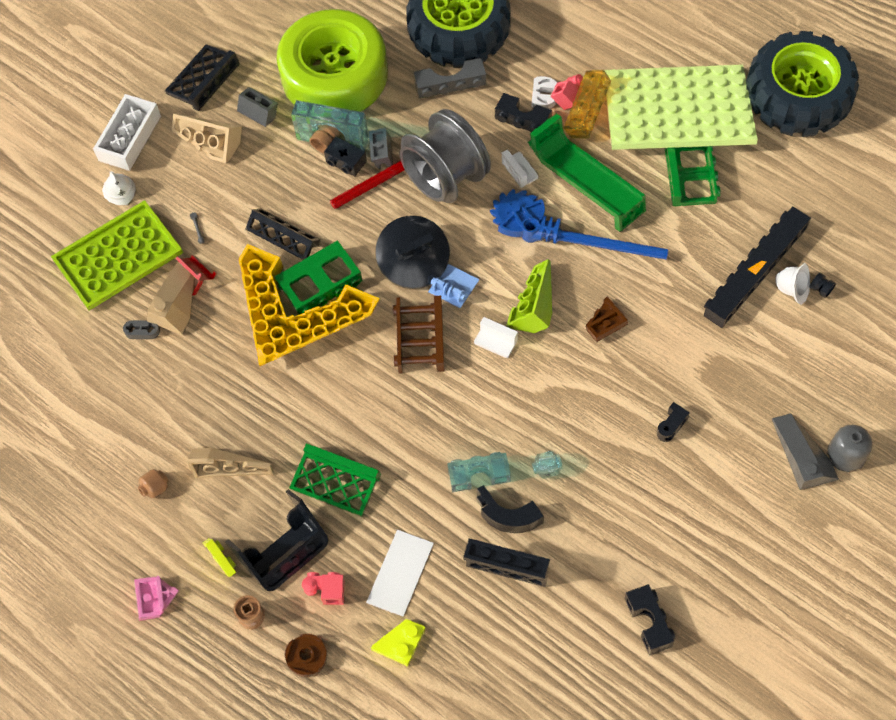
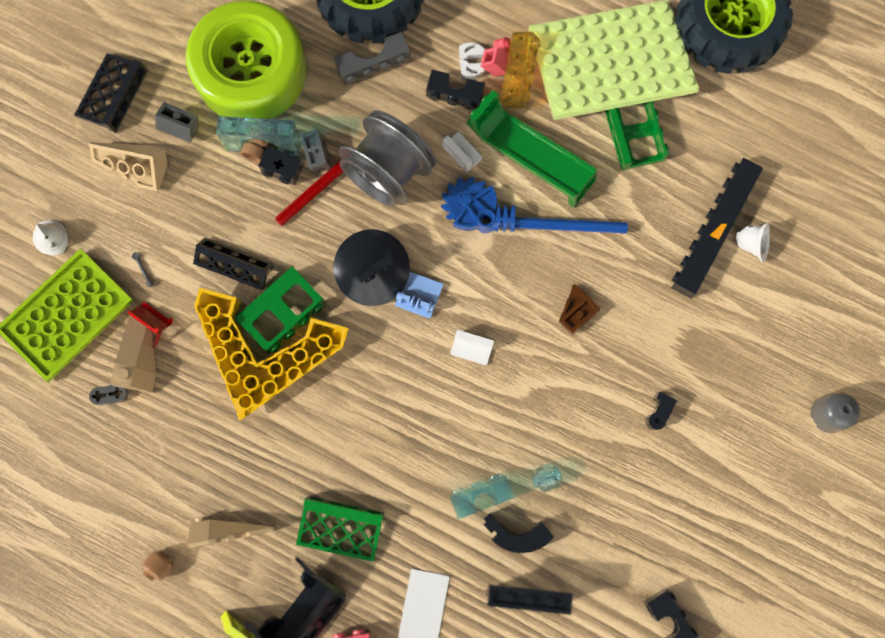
camera: 15 degrees left, 15 degrees up
(127, 132) = (44, 172): white brick -> none
(436, 341) = (412, 362): reddish brown fence -> none
(535, 303) = (504, 304): lime wedge -> none
(806, 458) = (791, 424): dark grey wedge -> none
(822, 285) = (783, 238): black wheel -> none

